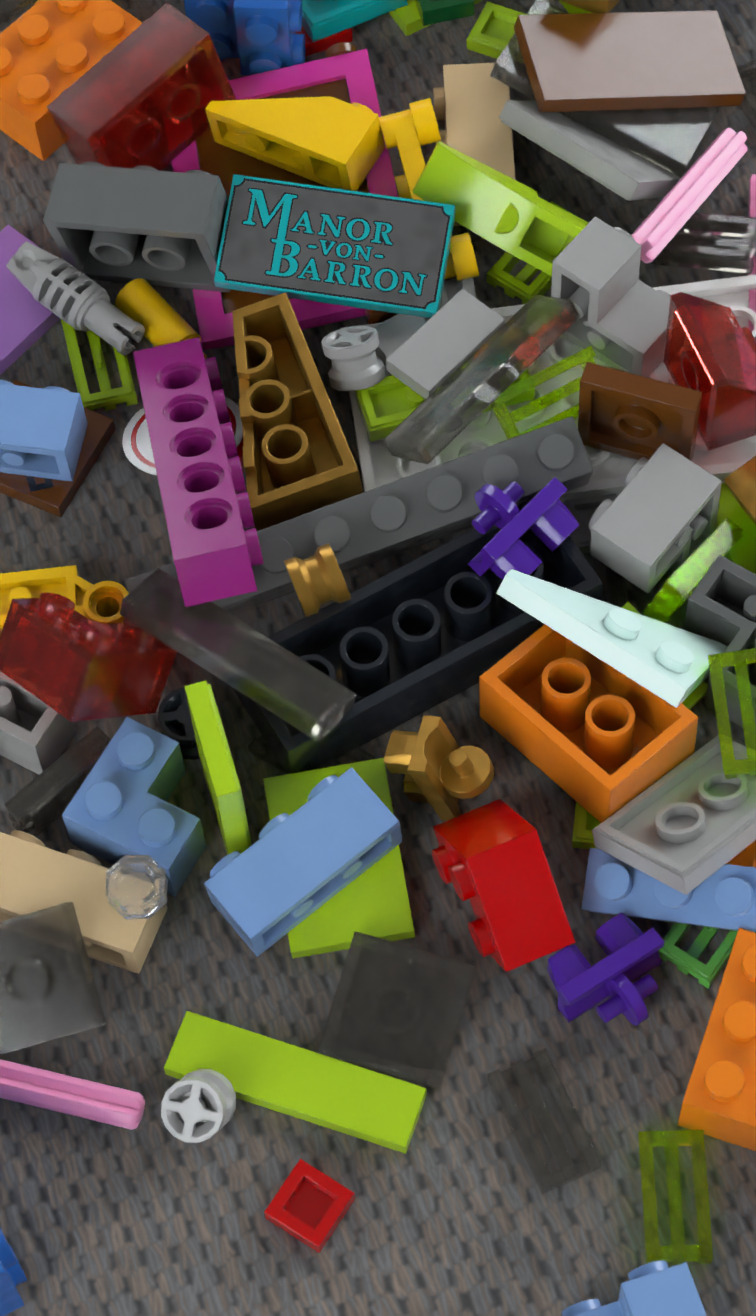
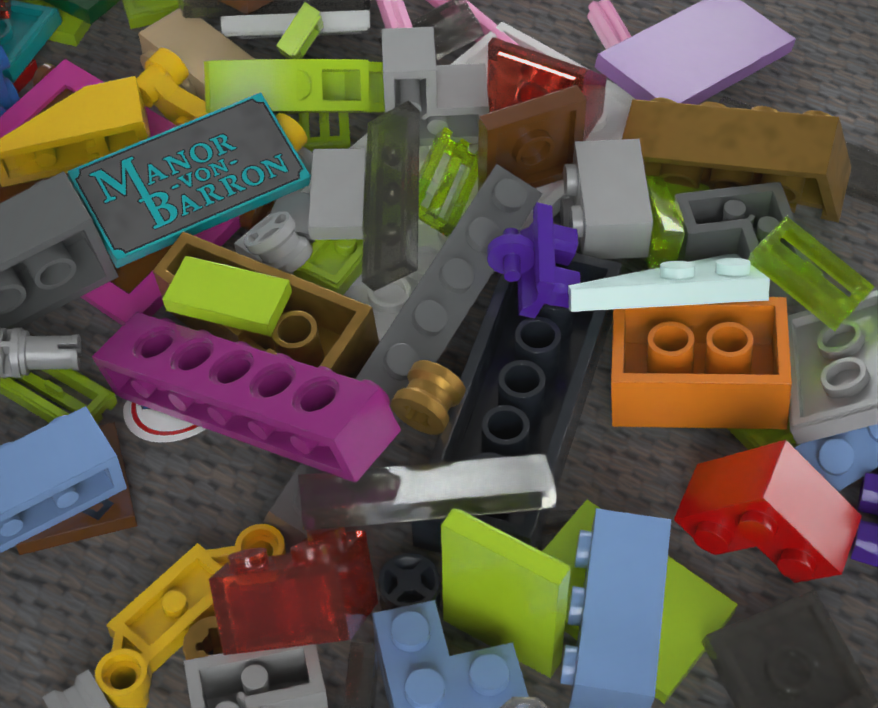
camera: 45 degrees left, 10 degrees down
(157, 316) = (92, 328): yellow cylinder -> none
(258, 377) = (227, 295): none -> lime tile
(437, 767) = (634, 478): pearl gold hips -> none
(542, 170) = (301, 33): none -> lime tile

